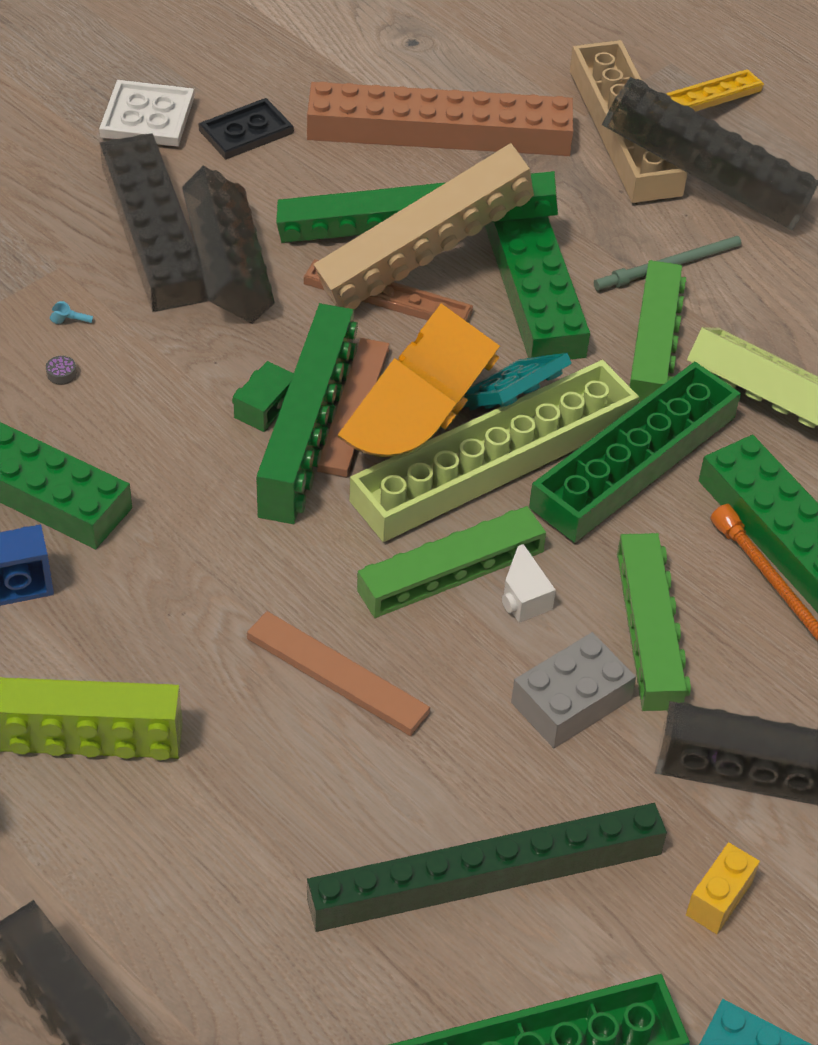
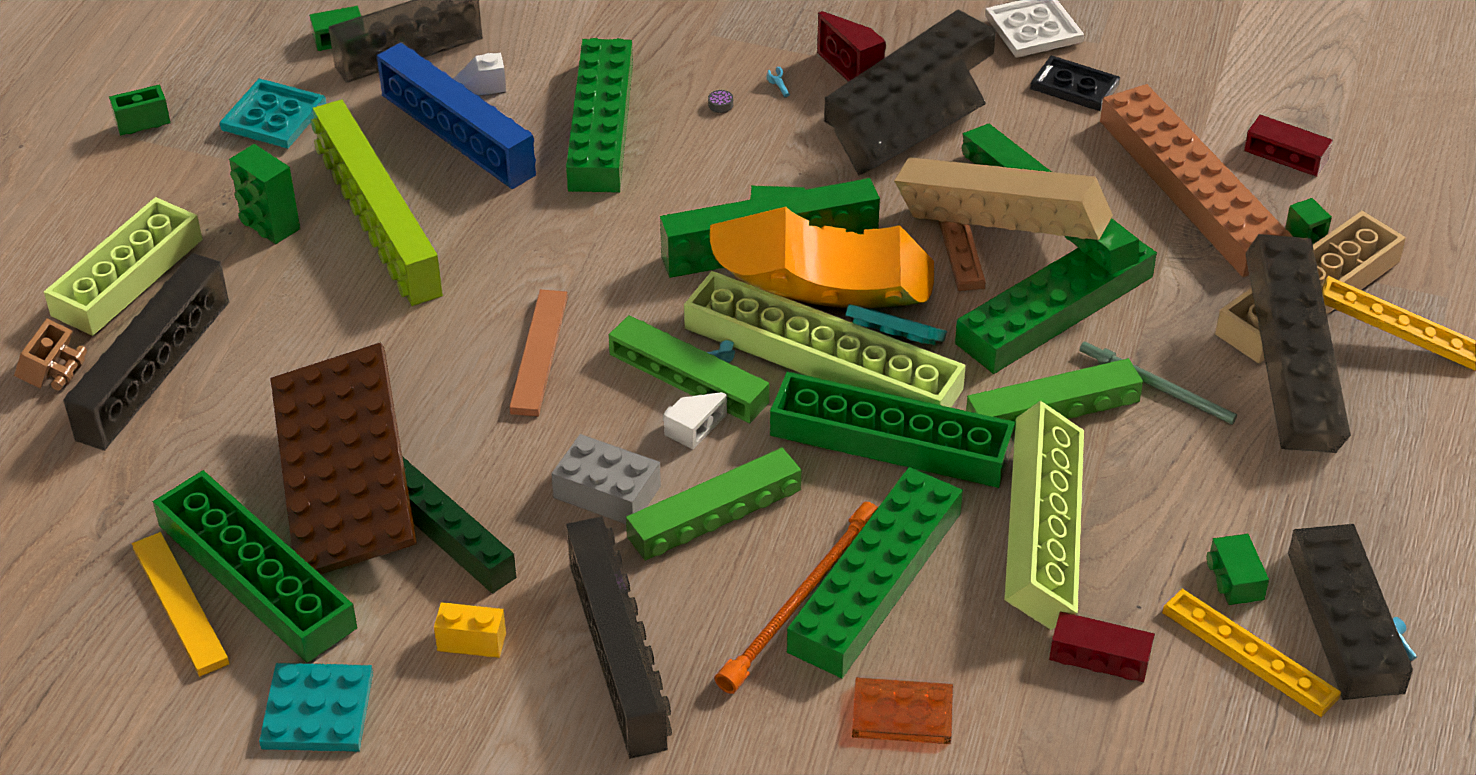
camera: 65 degrees right, 5 degrees down
(86, 240) = (848, 45): none -> dark red slope
(428, 903) = (342, 460): none -> reddish brown plate
(440, 49) = (1288, 145): none -> dark red brick
(440, 525) = (725, 351): none -> medium azure hand
(567, 80) = (1308, 220): none -> green brick

